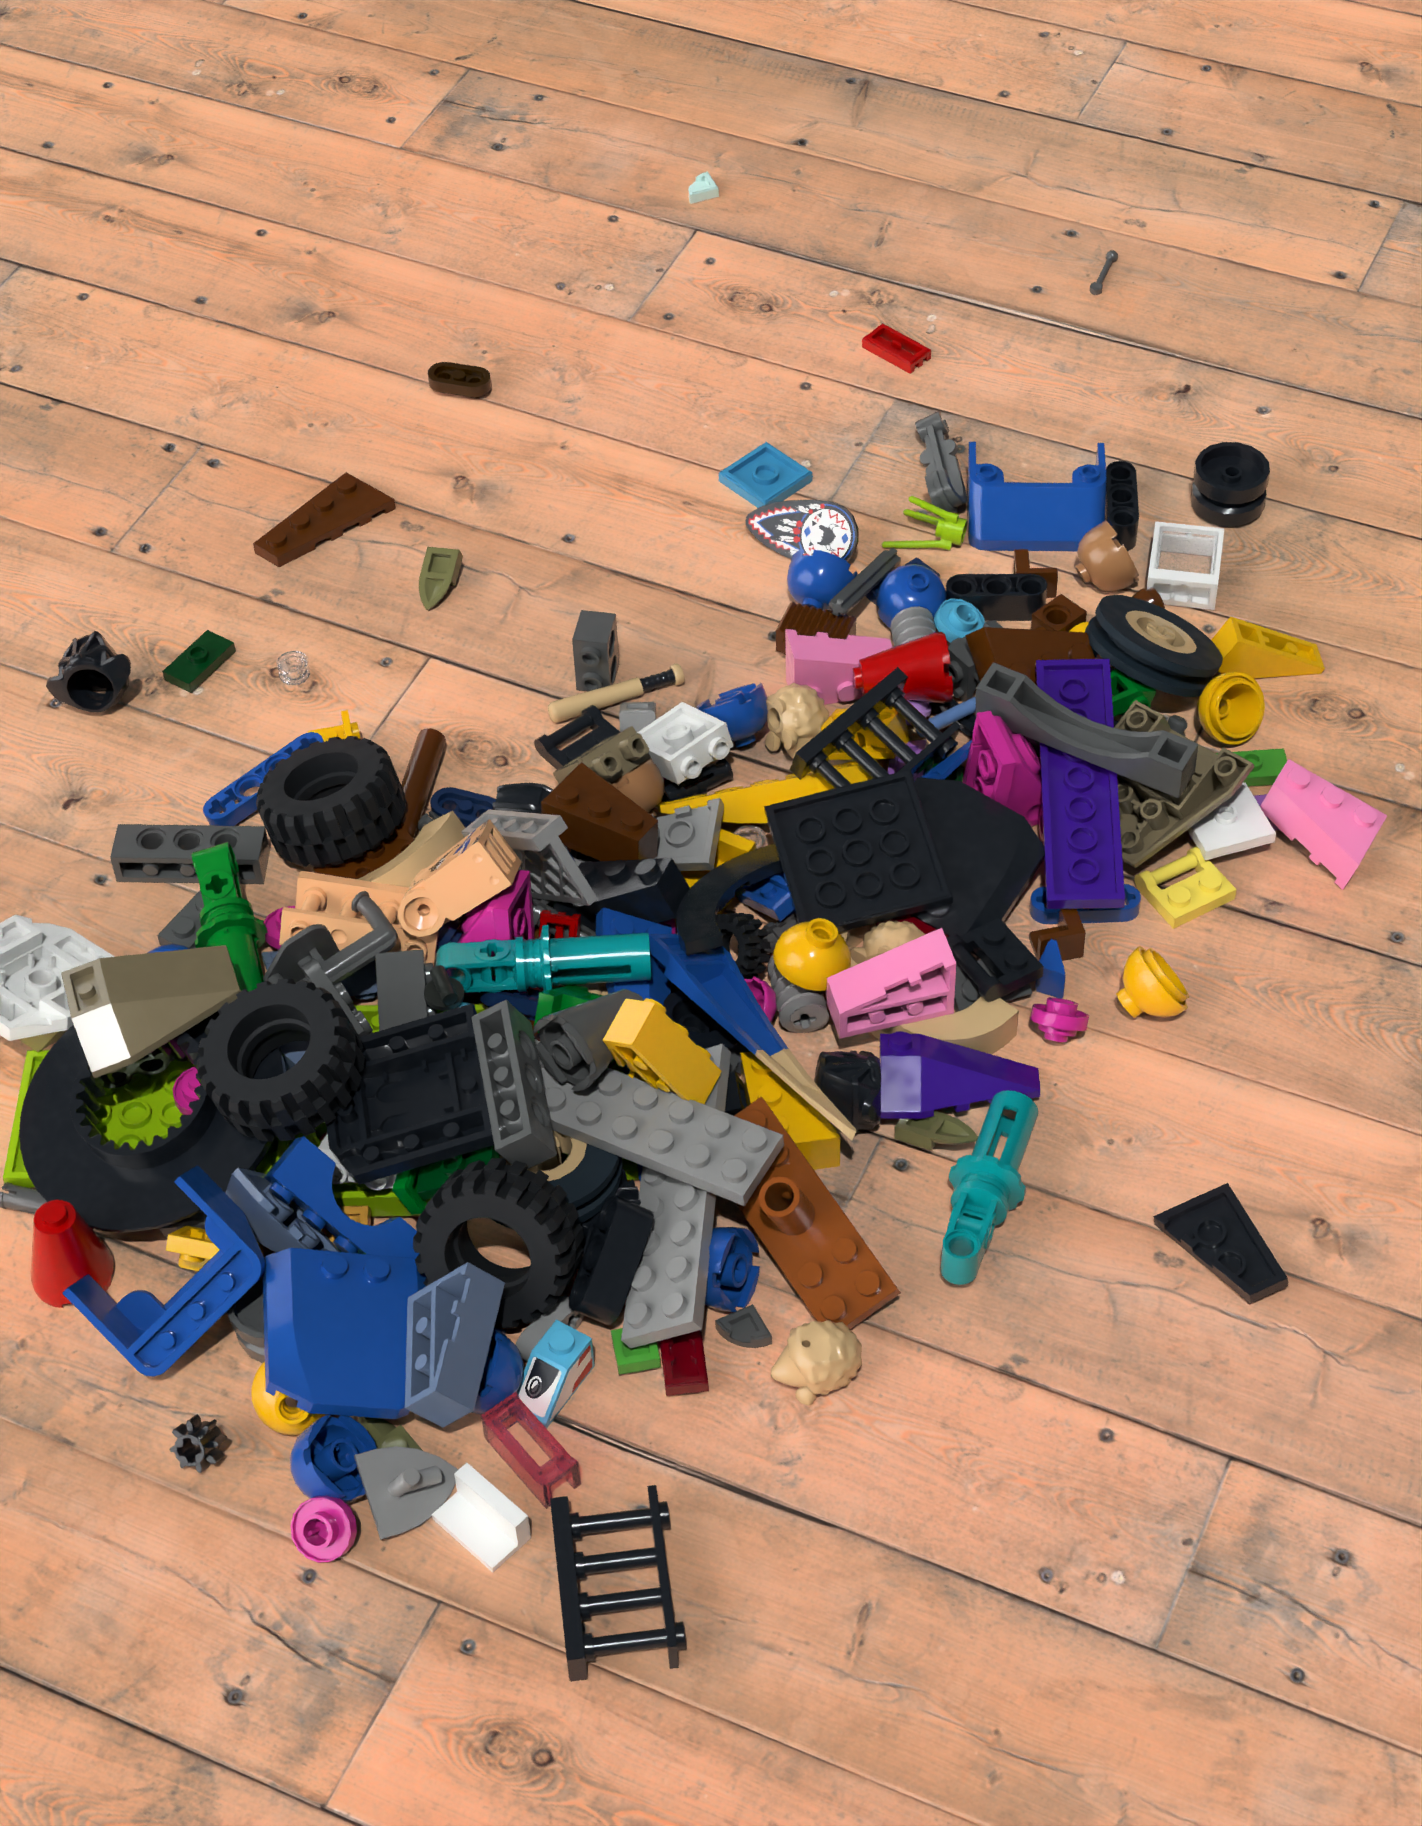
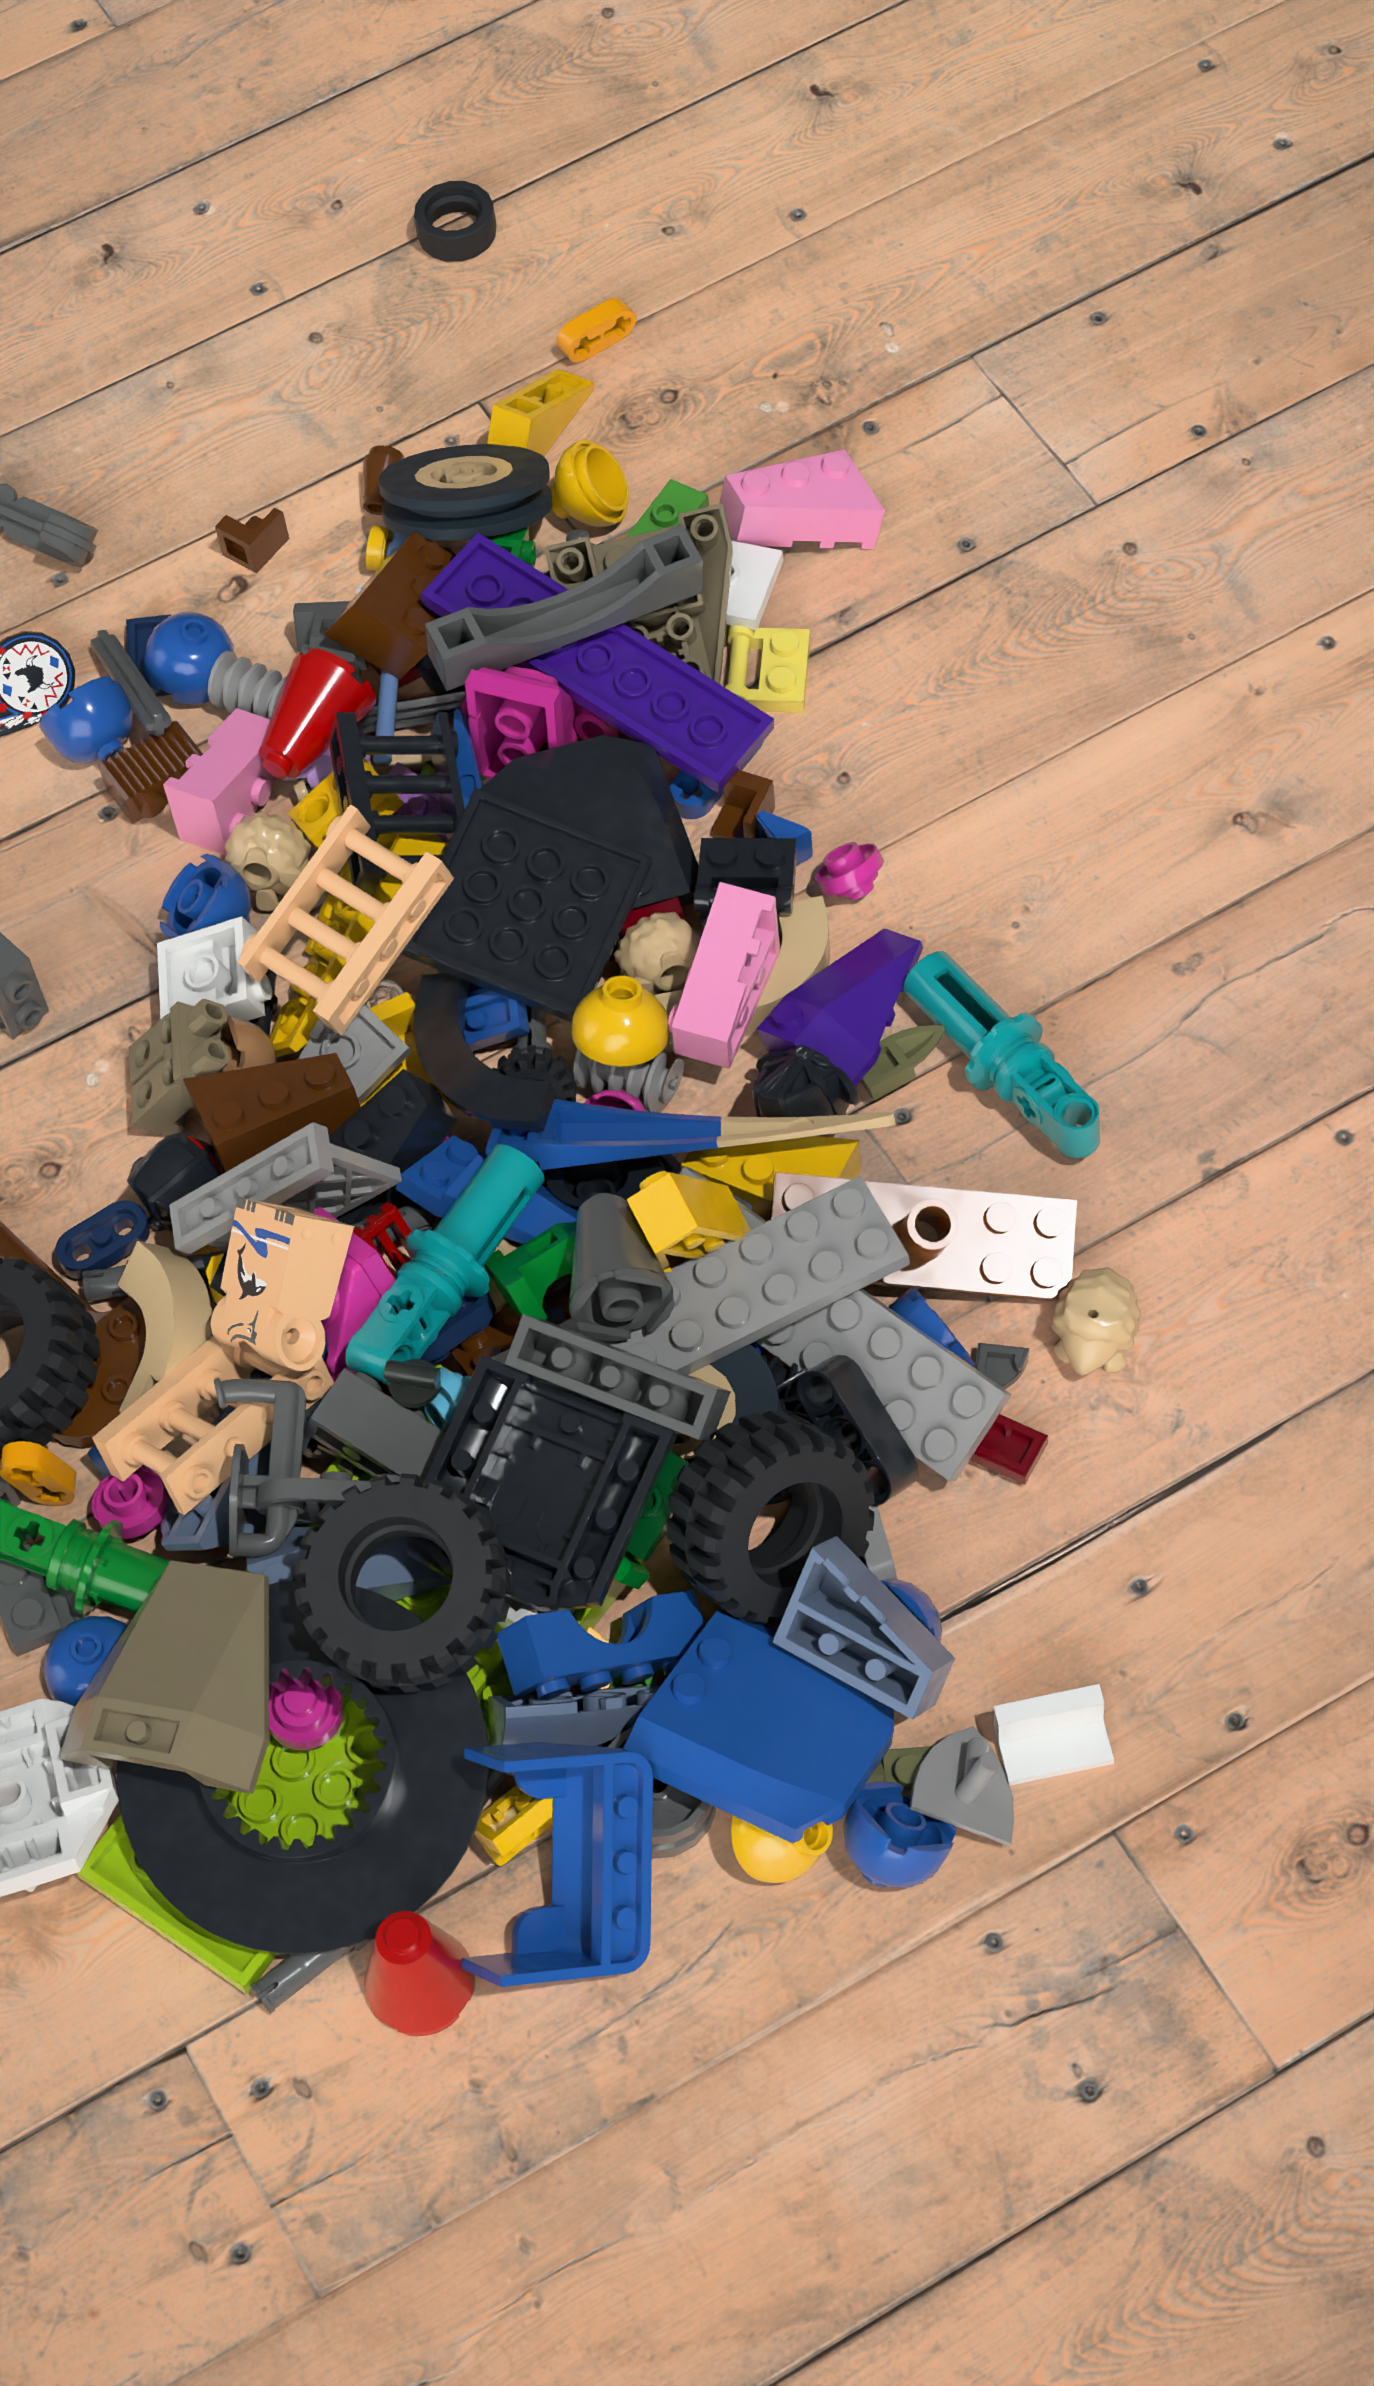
camera: 50 degrees left, 10 degrees up
(198, 1443) = (765, 1960): black gear -> none
(273, 870) = (38, 1473): none -> light orange beam
(323, 1528) = (964, 1891): dark pink plate -> none
(536, 1478) = (1014, 1659): clear pink window -> none
(555, 1370) = (930, 1562): slope -> none
(574, 705) = (54, 1022): tan piece -> none
(579, 1606) = (1222, 1703): black fence -> none
(590, 717) = (113, 1076): black plate -> none
(634, 1359) = (957, 1493): bright green plate -> none
(636, 715) = (114, 1004): light grey slope -> none
(758, 790) = (365, 960): none -> light nougat fence
(949, 527) = (115, 566): lime plant -> none
(957, 619) = (262, 636): medium azure plate -> none
(1000, 595) = (255, 582): black beam -> none
(1033, 514) = (172, 486): blue windscreen -> none
(1058, 615) = (341, 556): reddish brown brick -> none
(1105, 560) = (297, 461): medium nougat cylinder -> none
(1122, 502) = (229, 403): black beam -> none
(1151, 986) = (878, 770): yellow piece -> none
(1186, 564) = (361, 401): white window -> none
(1225, 1241) = (1214, 902): black wing -> none
(1230, 484) = (295, 295): black wheel -> none
(1363, 642) = (596, 330): none -> light orange beam
(1374, 542) = (449, 198): none -> black tyre

